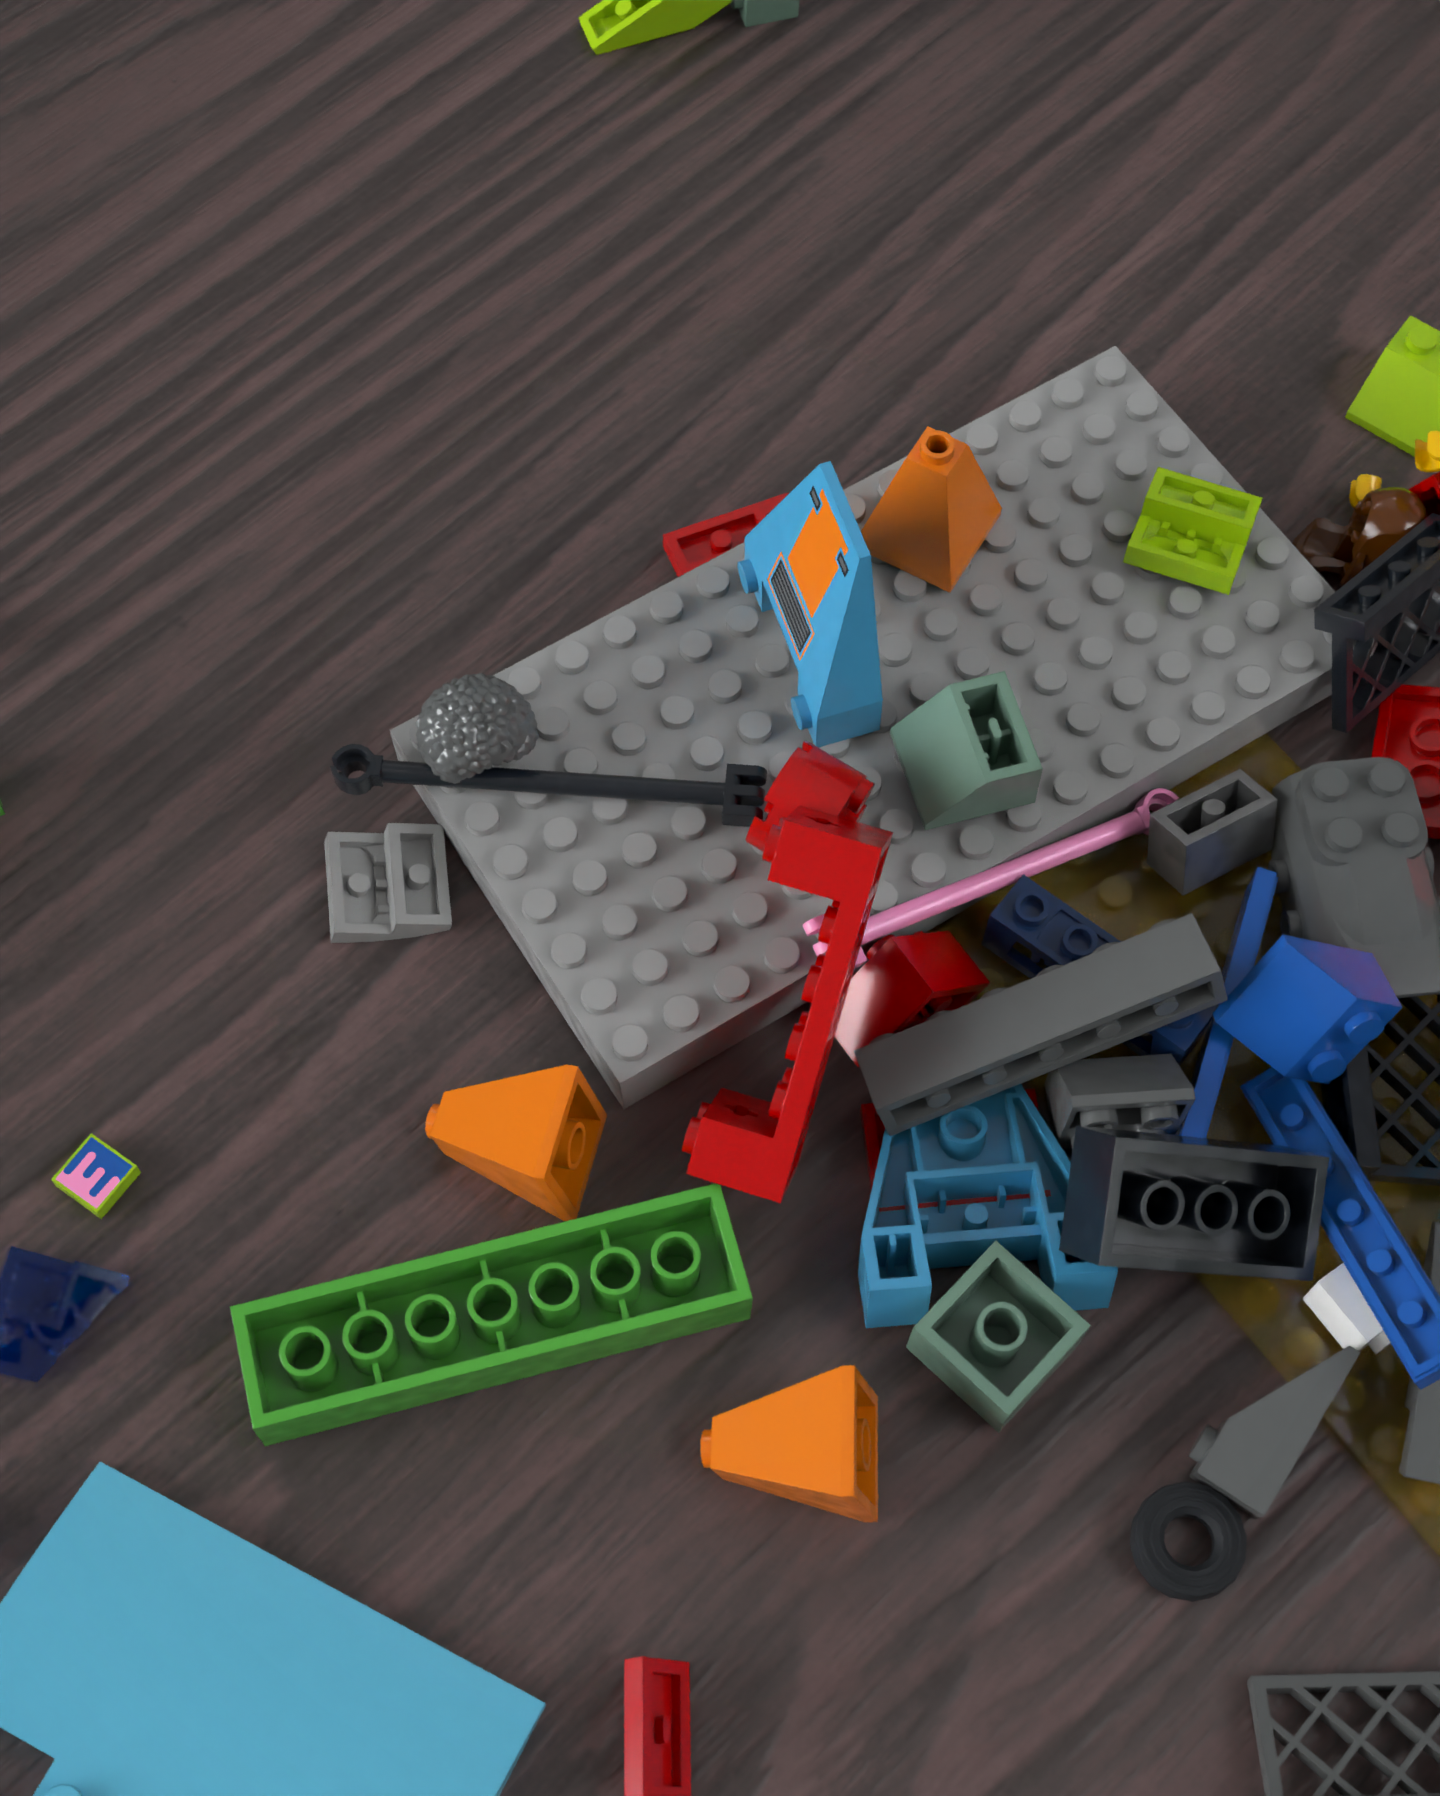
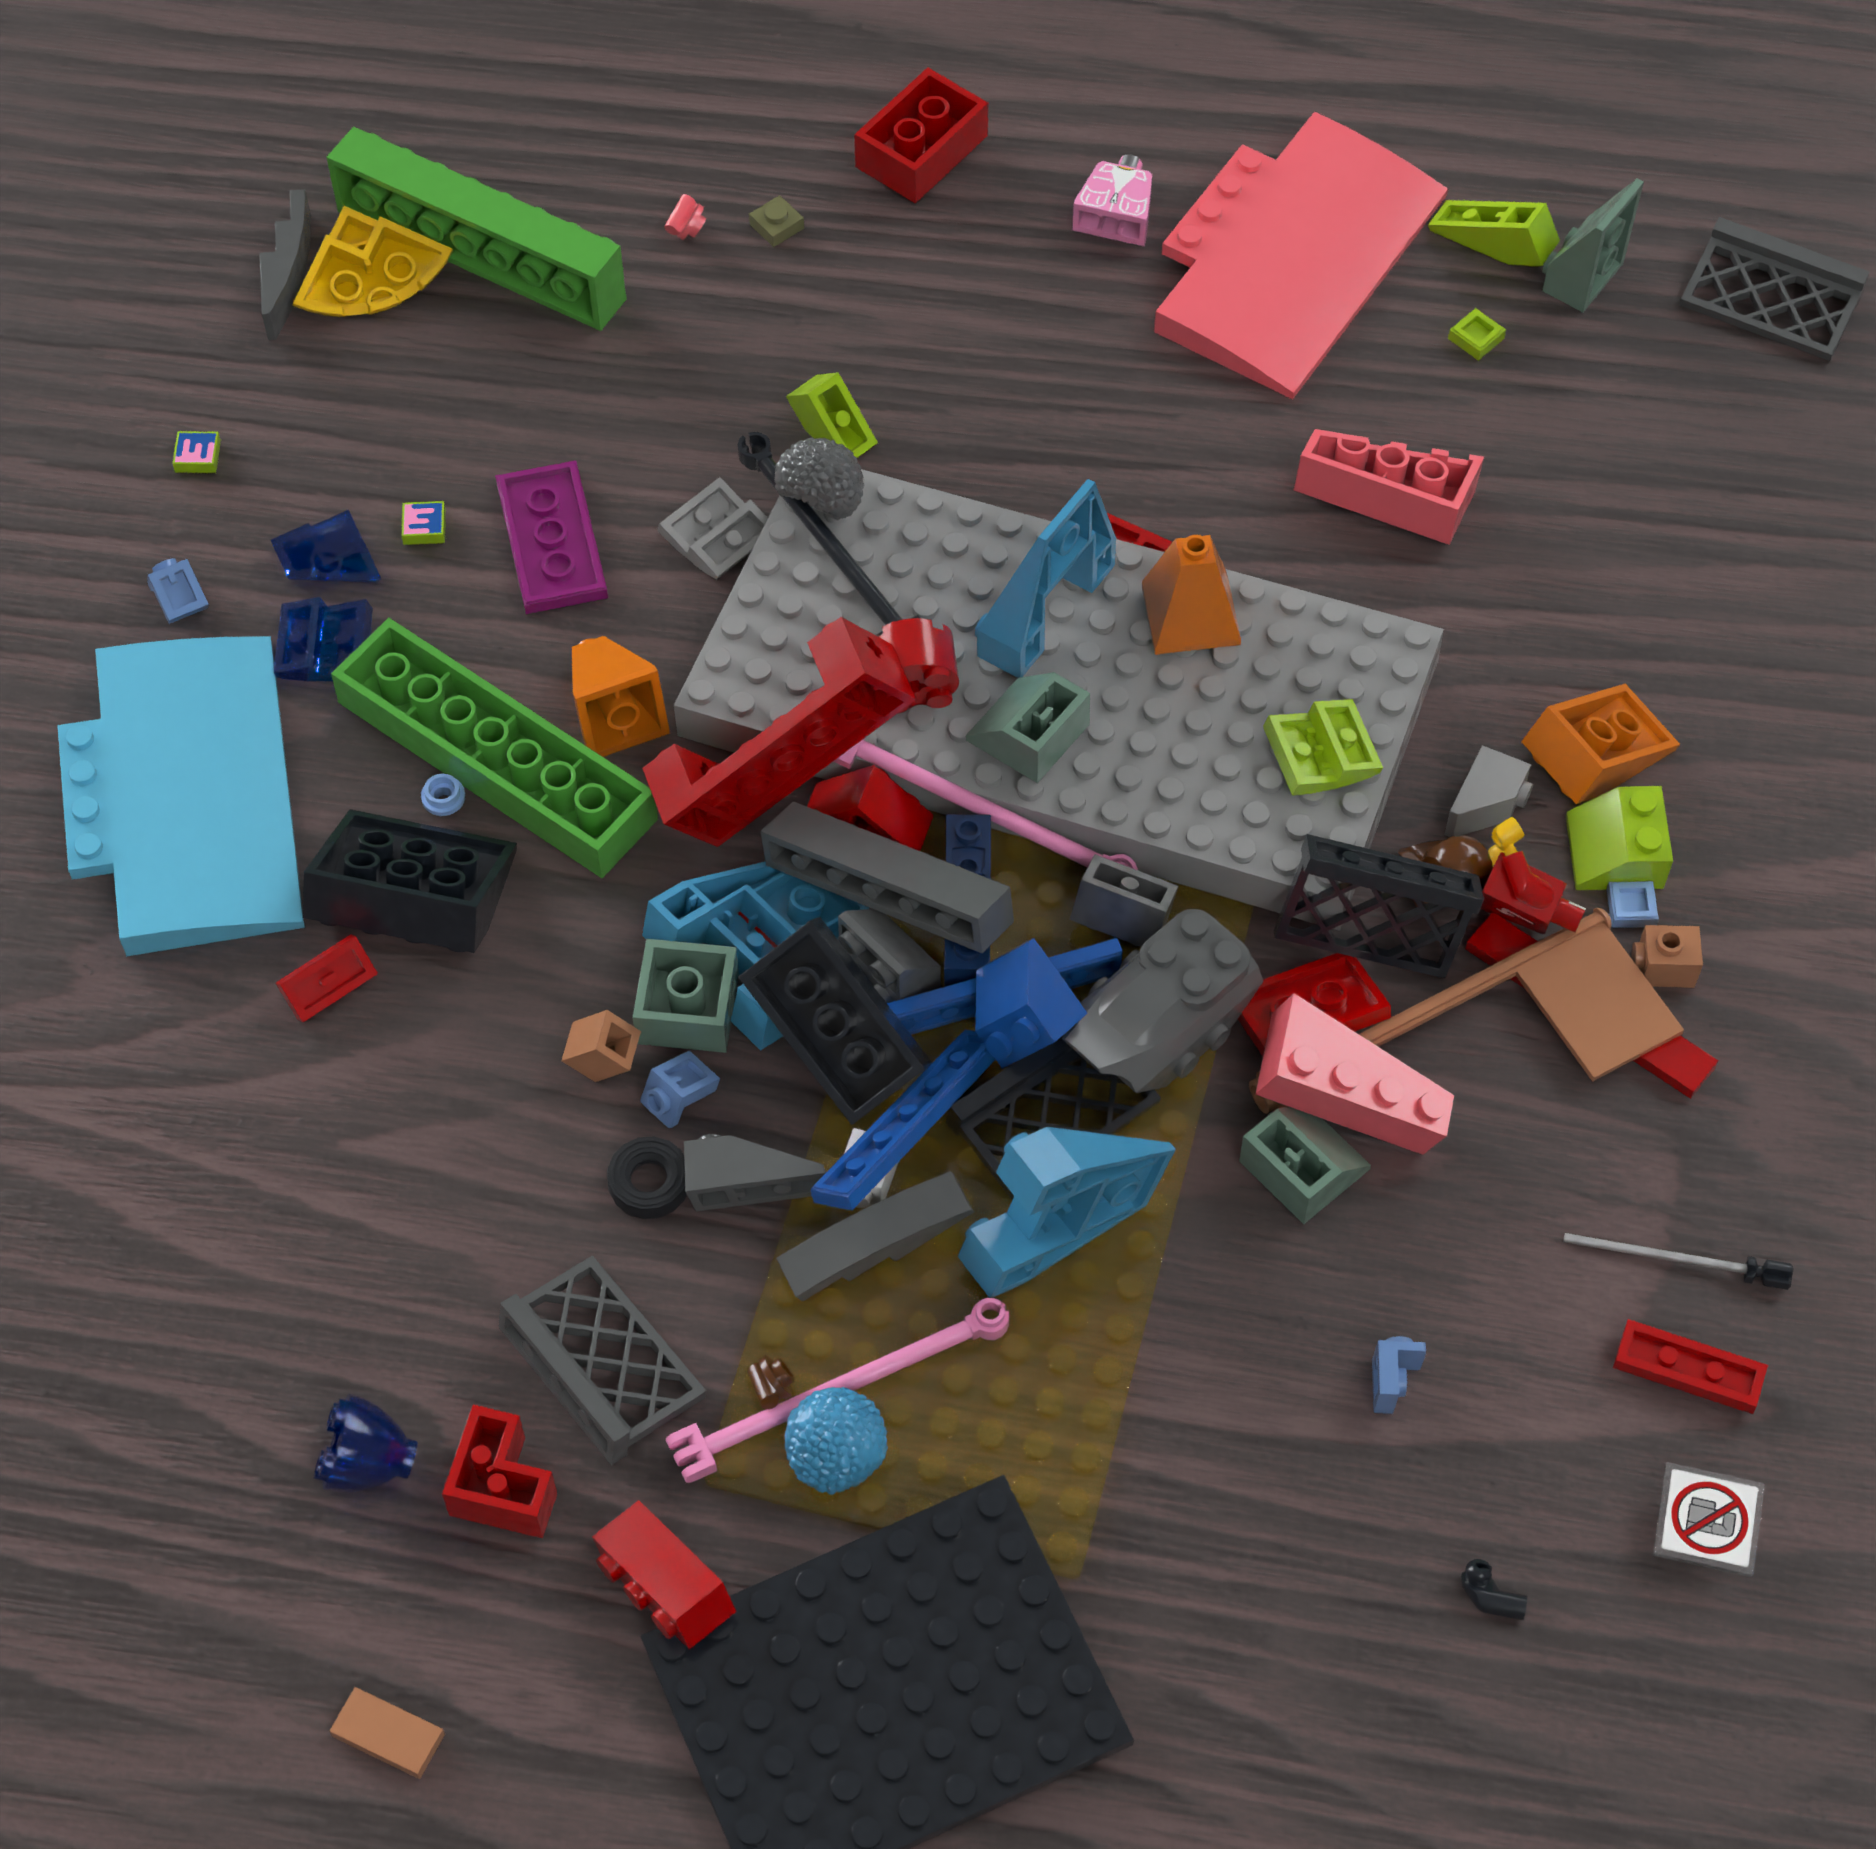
camera: 55 degrees right, 5 degrees down
(36, 550) = (776, 221): none -> olive plate
(75, 346) = (921, 135): none -> red brick
(160, 1403) = (319, 637): none -> clear blue slope
(240, 1055) = (551, 537): none -> magenta tile
(328, 251) = (1115, 201): none -> bright pink torso
(348, 673) = (831, 413): none -> lime slope
(498, 1397) = (442, 785): none -> light blue plate
(522, 167) = (1291, 251): none -> coral slope
(592, 1536) = (407, 881): none -> black slope
(753, 103) = (1477, 334): none -> lime tile
(804, 1444) = (549, 947): orange slope -> none
(881, 276) = (1389, 482): none -> coral wedge
(996, 1475) = (601, 1046): none -> nougat brick
(1097, 1428) = (676, 1086): none -> medium blue bracket
(1287, 451) = (1489, 793): none -> light grey slope
(1302, 335) = (1598, 741): none -> orange slope

